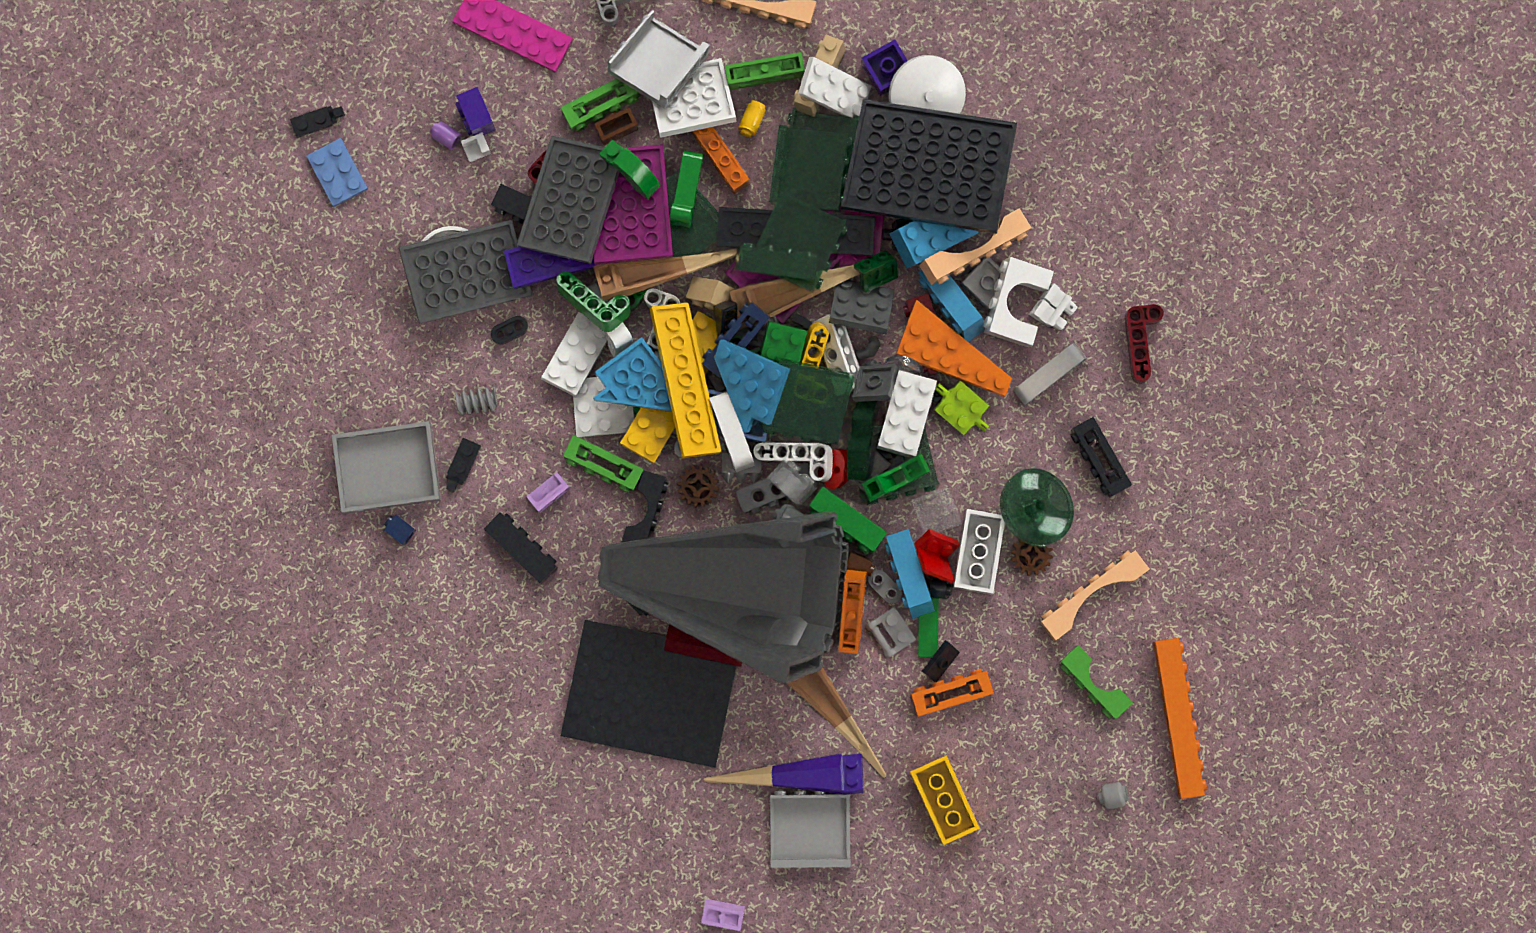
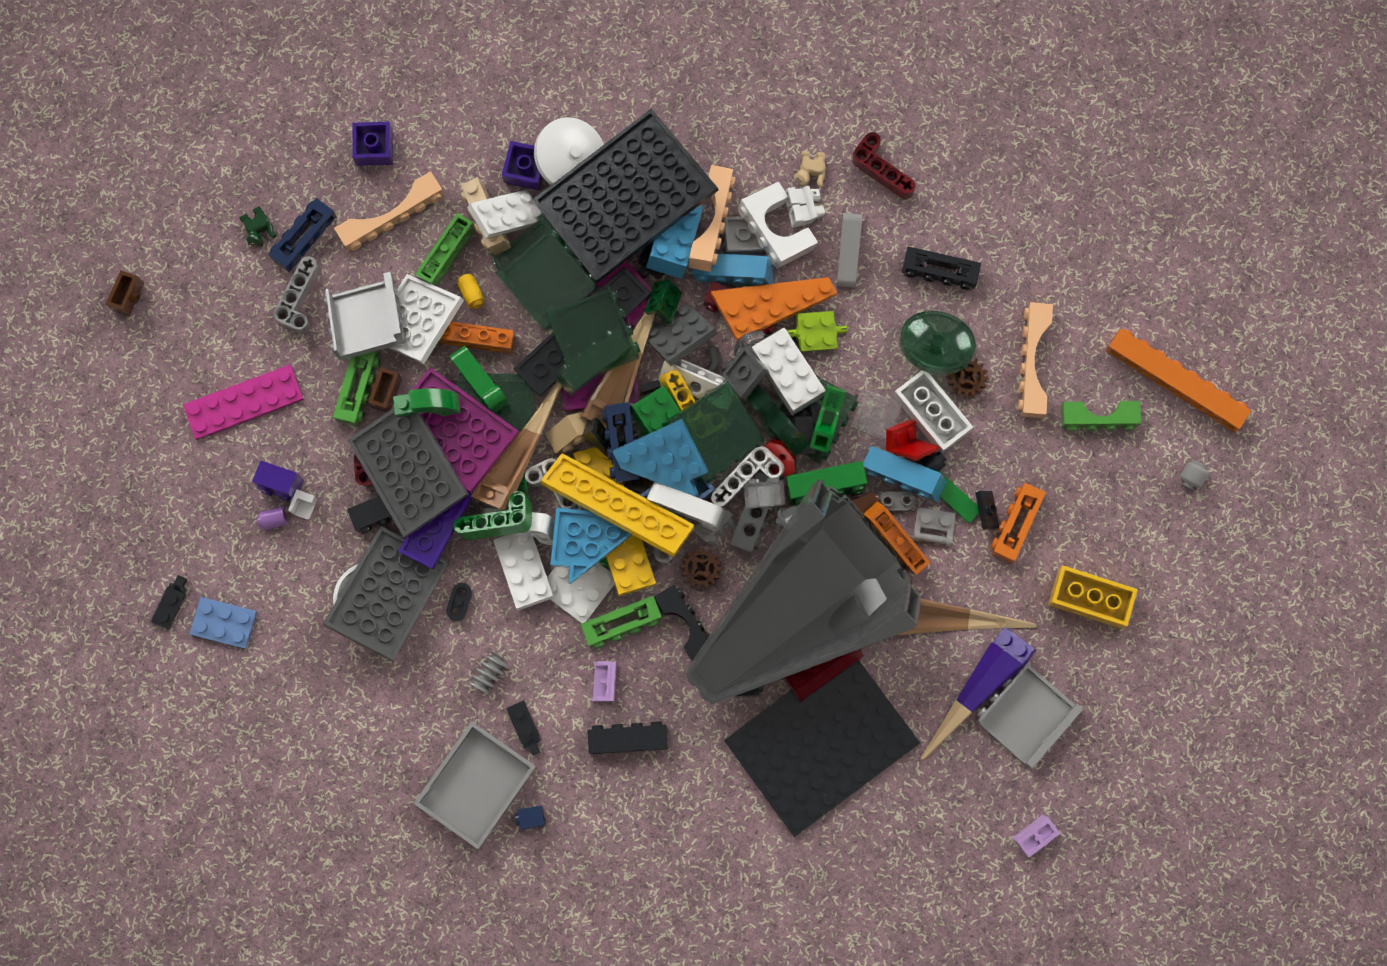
camera: 45 degrees left, 5 degrees down
(1092, 288) = (811, 167): none -> tan animal

